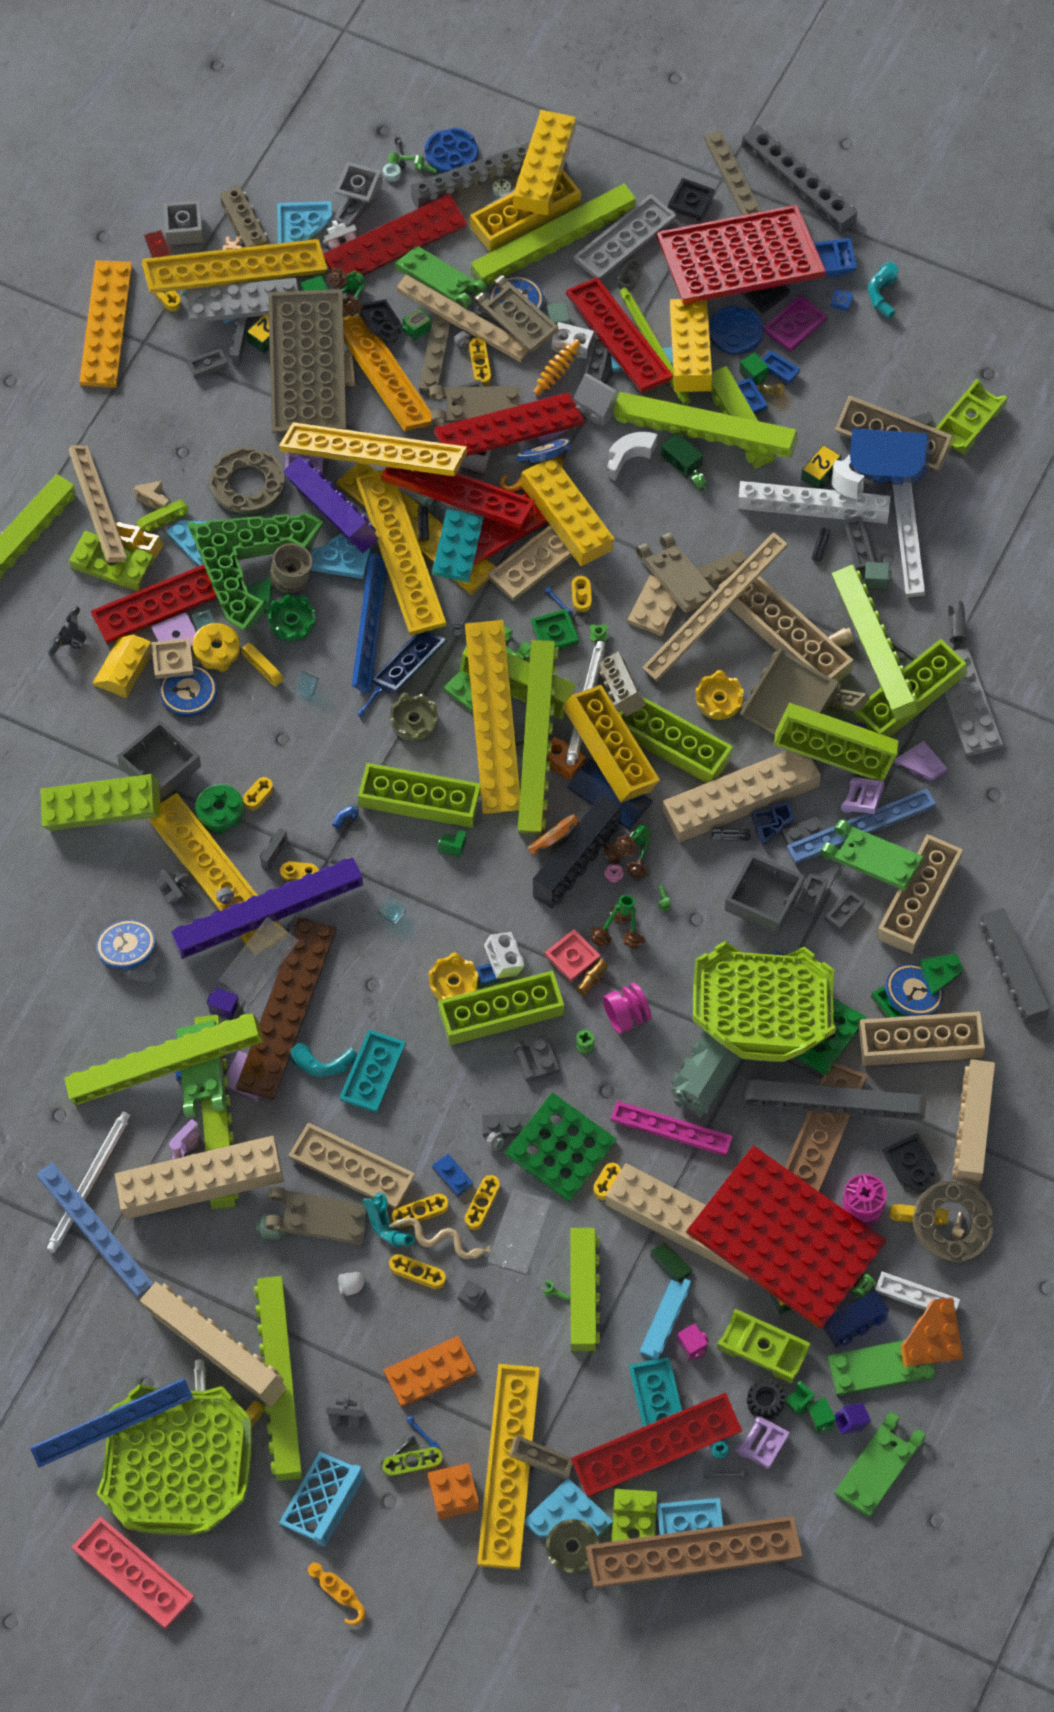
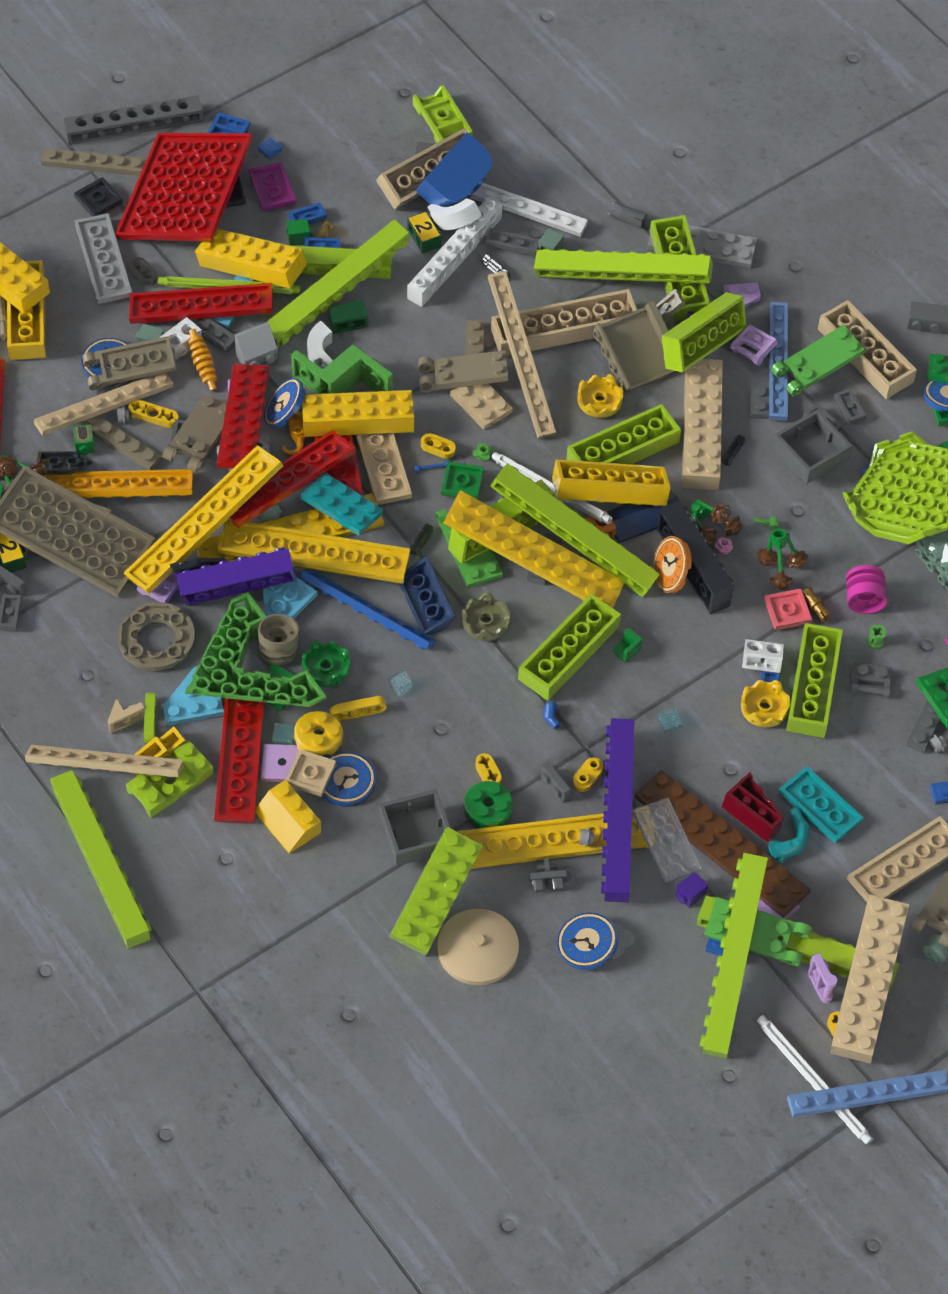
camera: 65 degrees left, 5 degrees down
(69, 634) = (229, 844): black piece -> none
(79, 866) = (478, 946): none -> tan dish
(322, 468) = (194, 564): none -> black tile
(334, 1014) = (753, 809): none -> dark red wedge
(378, 689) = (437, 635): blue hinge -> none
(423, 525) = (296, 522): black axle -> none
(439, 276) = (46, 400): bright green hinge -> none
(554, 235) = (64, 305): lime brick -> none
(607, 480) = (342, 372): none -> bright green bracket
(621, 684) = (546, 450): dark tan brick -> none
(699, 480) = (380, 317): bright green plate -> none
(735, 330) = (250, 222): blue tile -> none
(772, 820) = (738, 416): dark blue slope -> none
(842, 637) = (594, 288): tan cone -> none
(886, 275) = (270, 108): teal piece -> none

